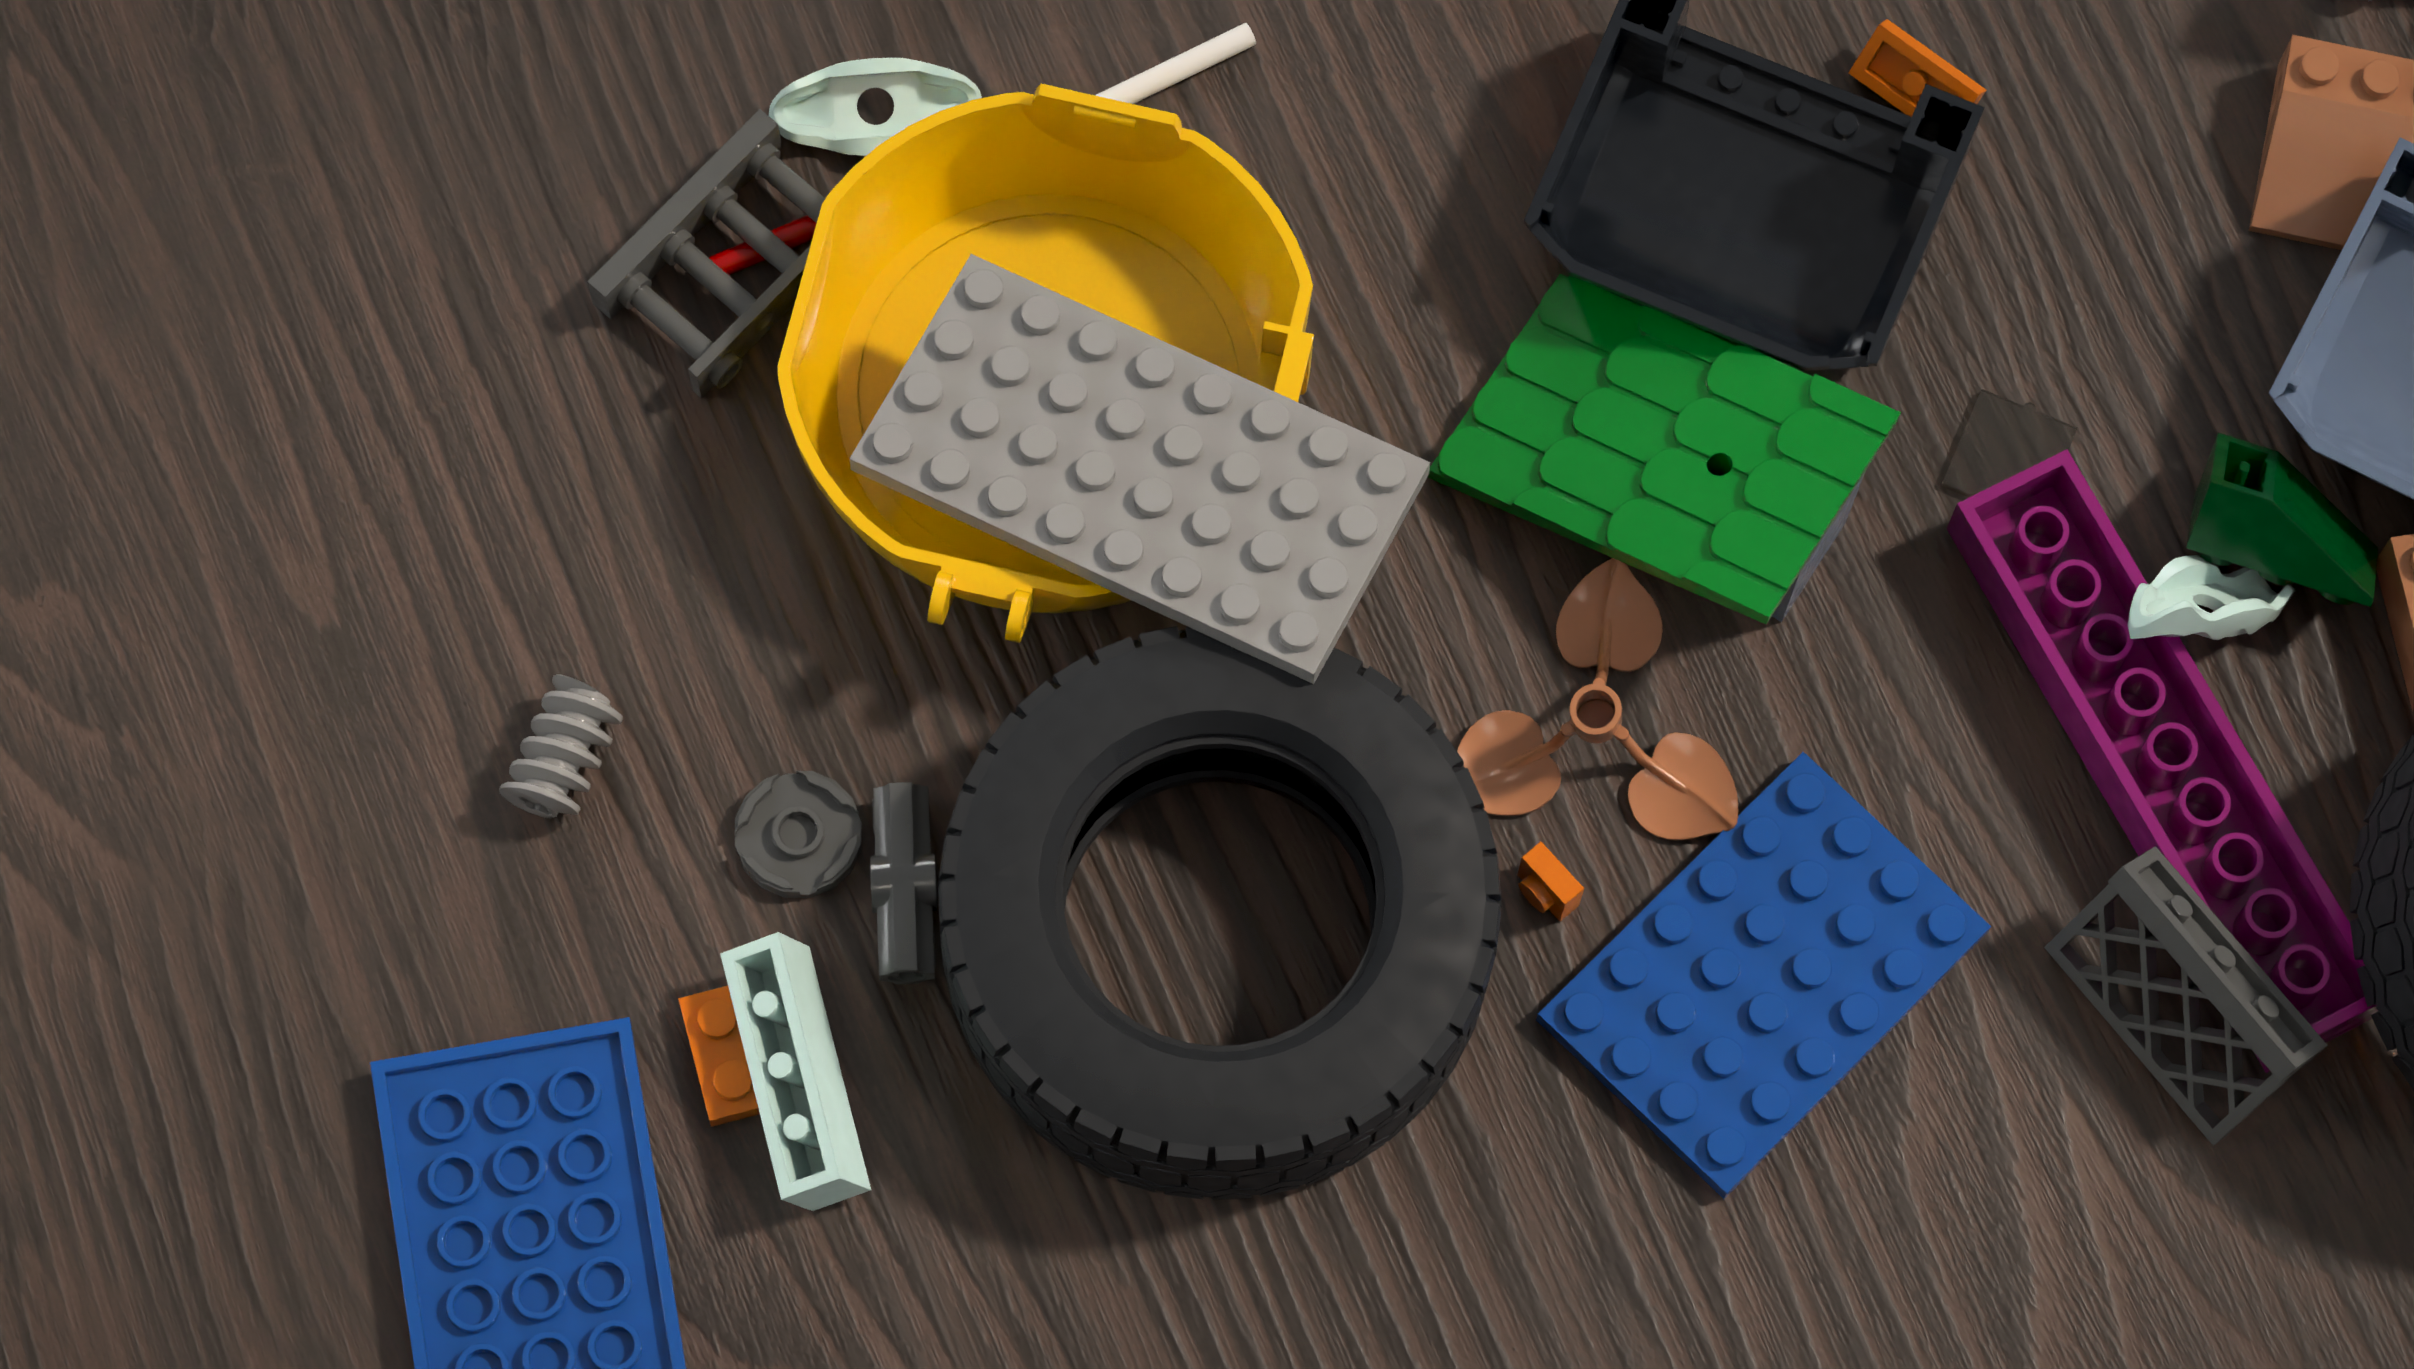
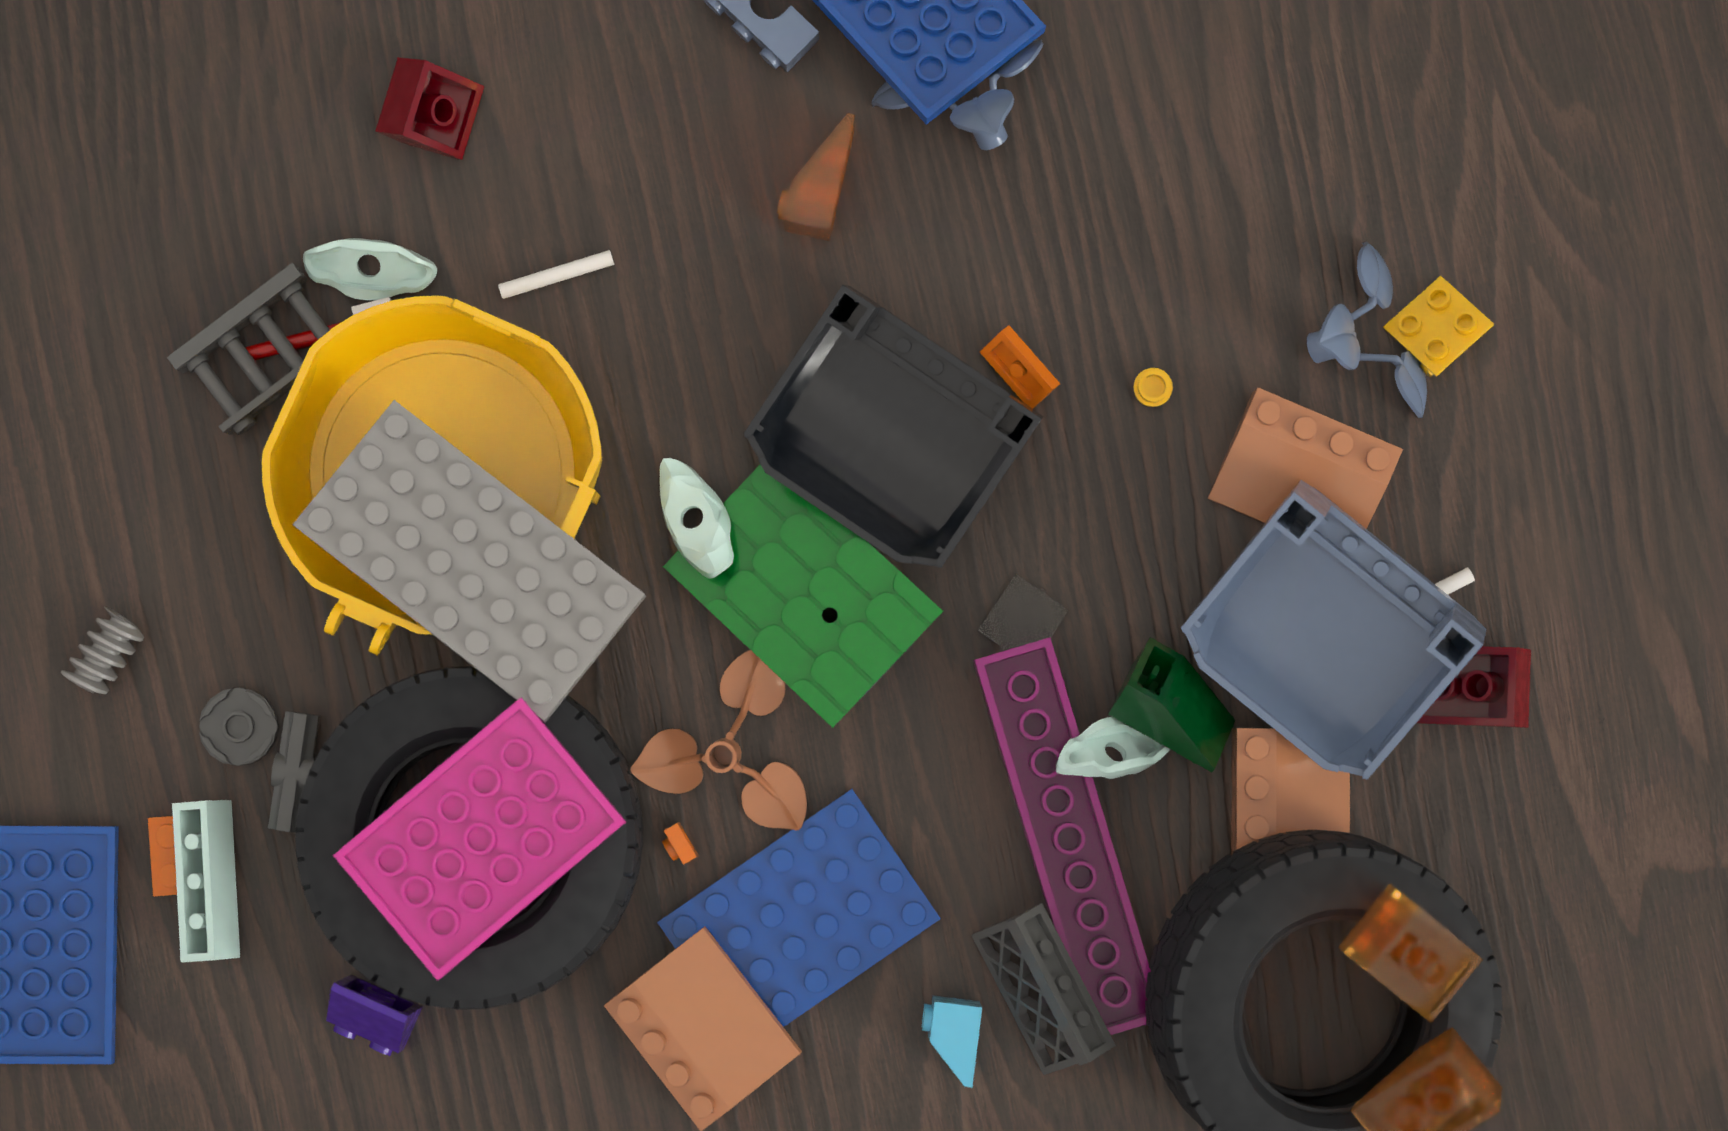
camera: 10 degrees right, 15 degrees up
(1109, 1226) = (371, 1013): none -> dark purple slope
(1248, 873) = (479, 838): none -> dark pink plate
(1493, 415) = (709, 544): none -> light aqua piece
(1653, 1156) = (702, 1028): none -> nougat slope
(2061, 1091) = (954, 1033): none -> medium azure slope
(2126, 78) = (1152, 387): none -> yellow plate

